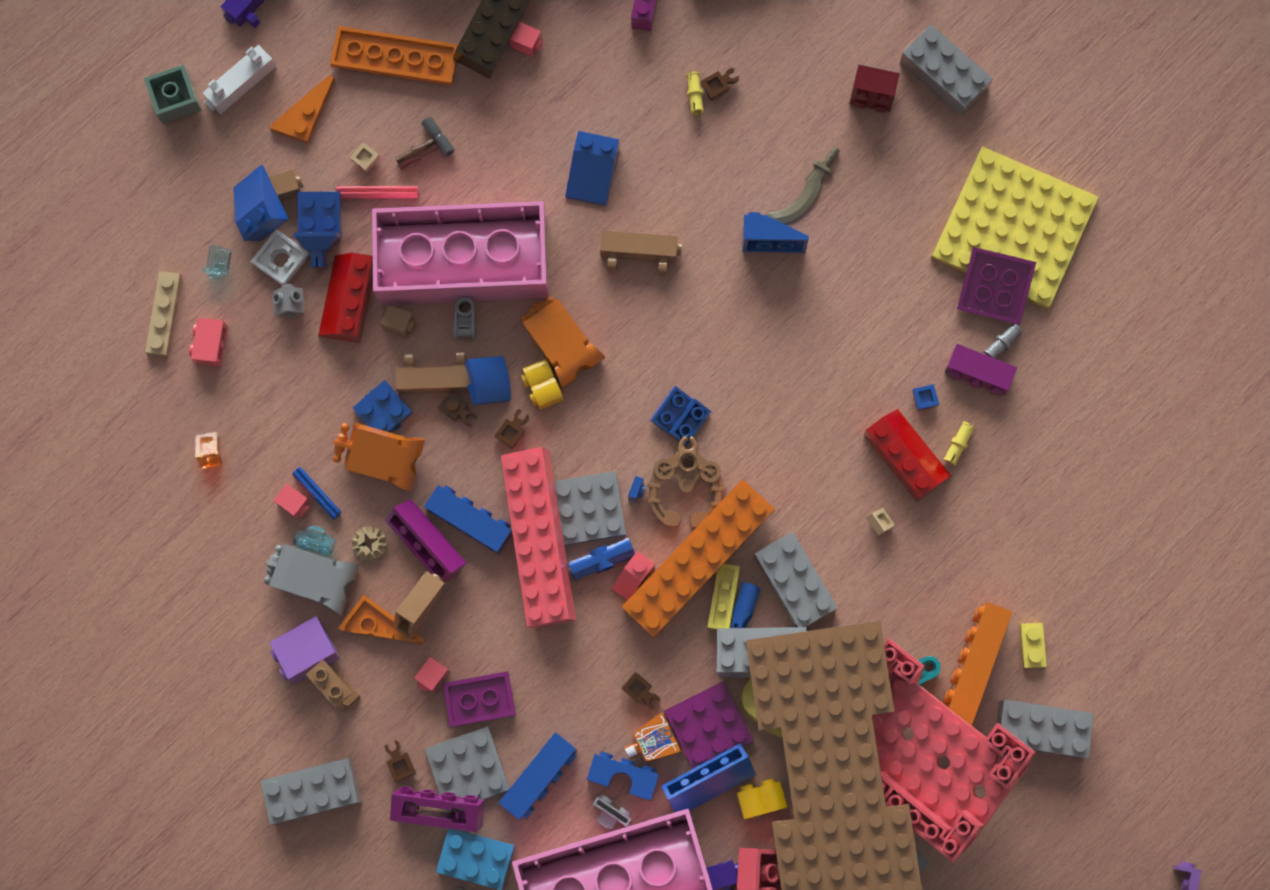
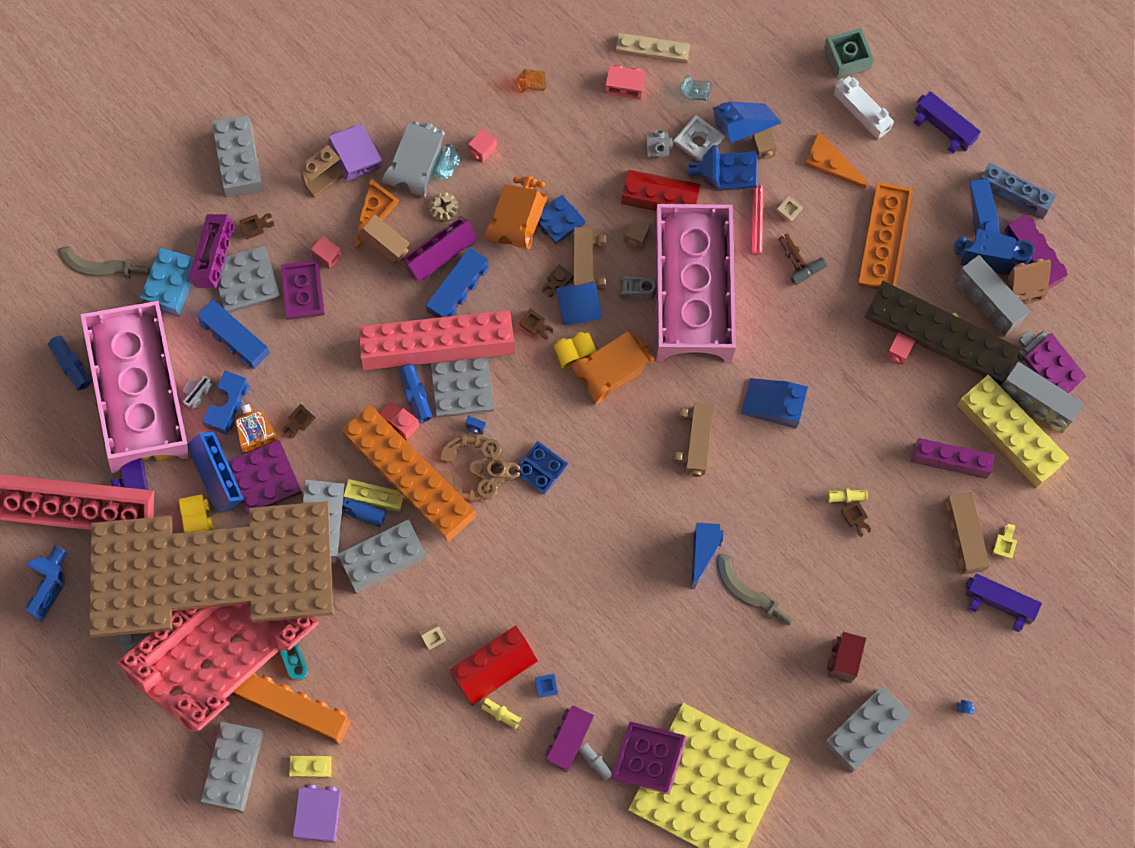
camera: 85 degrees right, 5 degrees down
(315, 491) = (489, 165): blue axle -> none
(1085, 632) = (317, 814): none -> medium lavender brick

